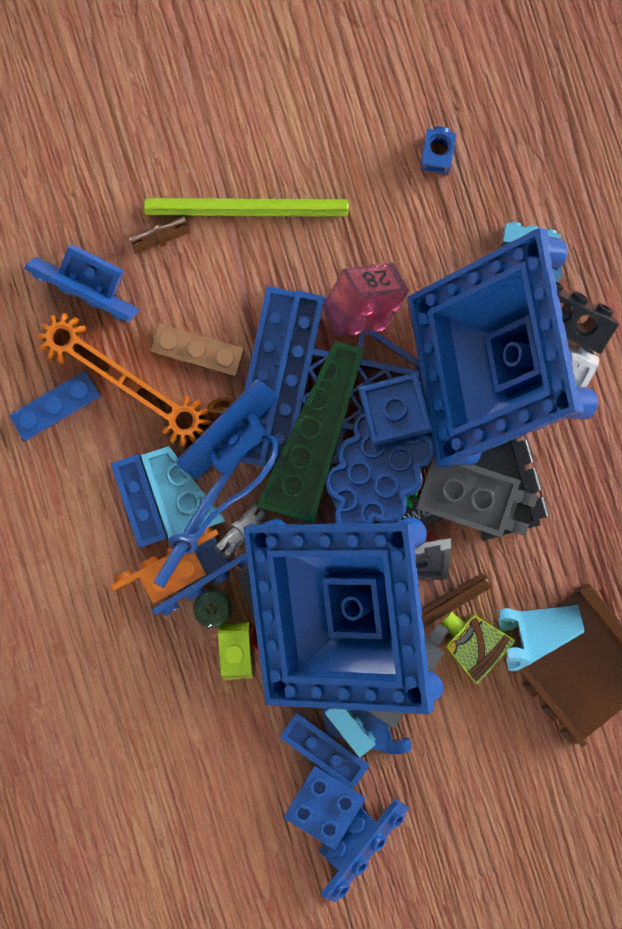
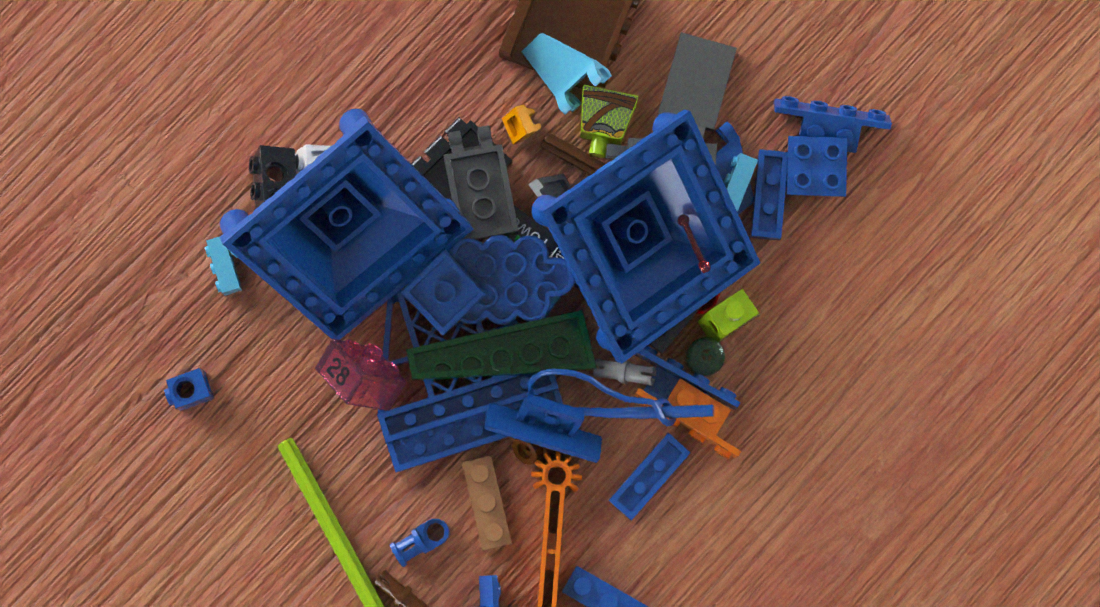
camera: 130 degrees left, 5 degrees down
(173, 491) = (624, 449): medium azure wing -> none
(196, 275) = (420, 539): none -> blue connector
(288, 650) = (683, 220): none -> clear red hinge
(460, 745) = (698, 80): none -> dark grey tile
(512, 565) = (520, 124): none -> light orange tile

